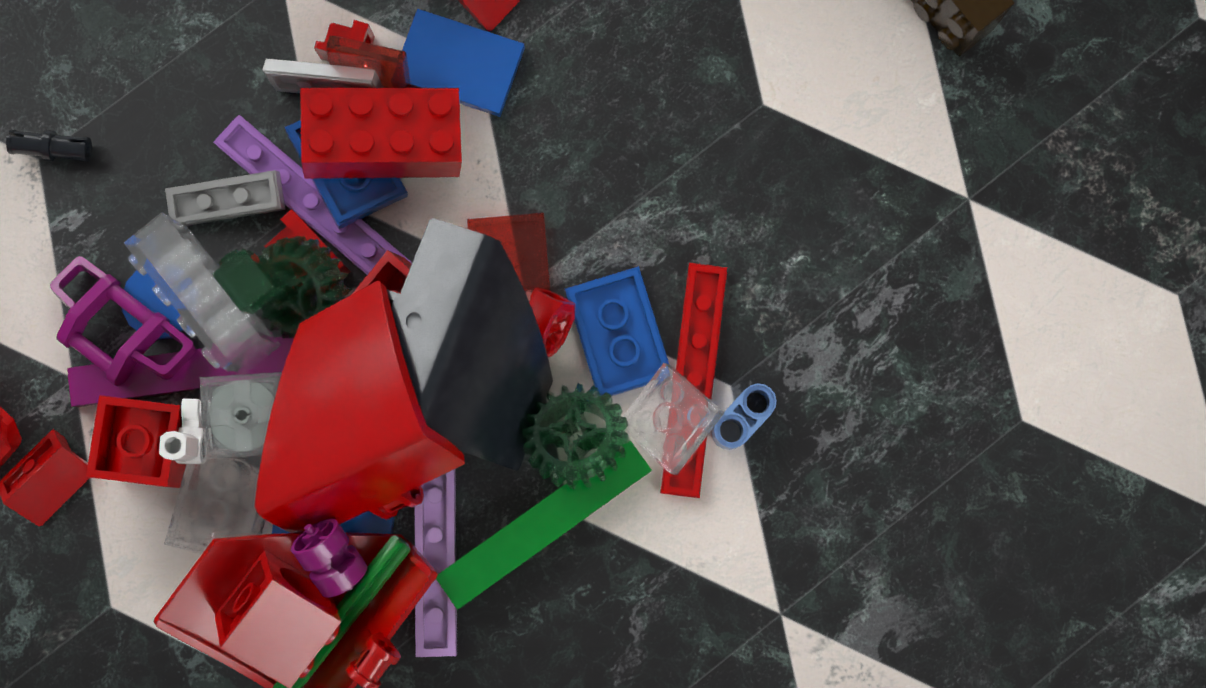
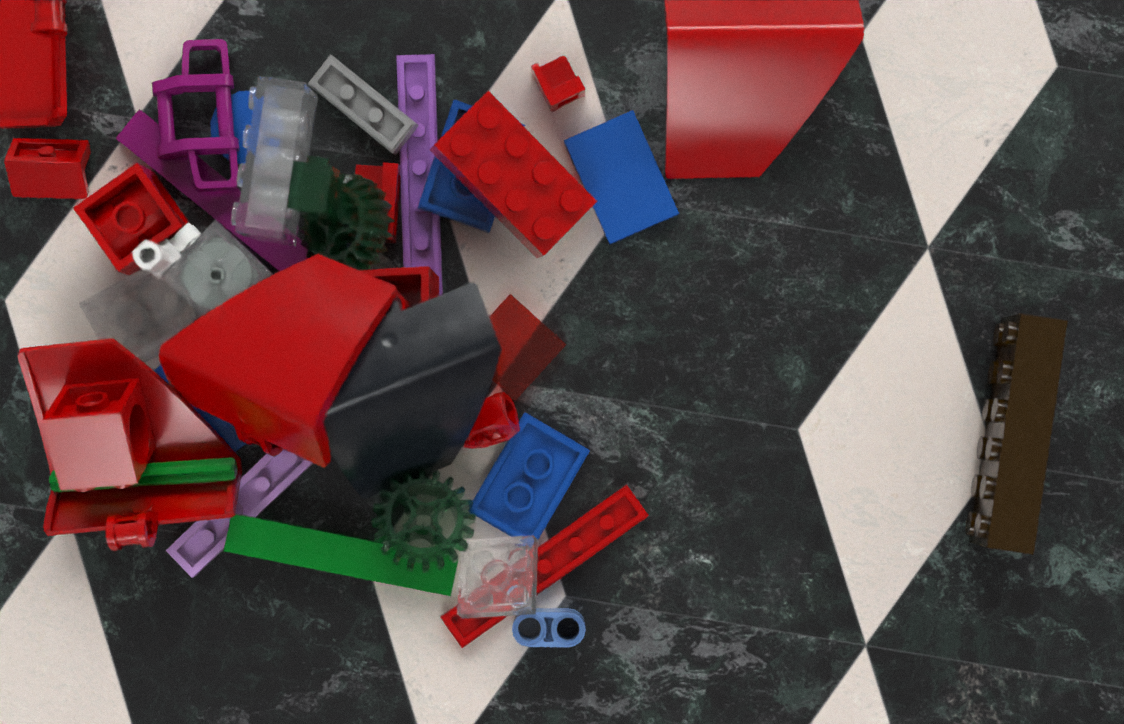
camera: 50 degrees right, 5 degrees up
(293, 75) = (513, 92): light grey tile -> none
(326, 553) = (175, 429): magenta wheel -> none
(388, 63) = (551, 121): clear red tile -> none

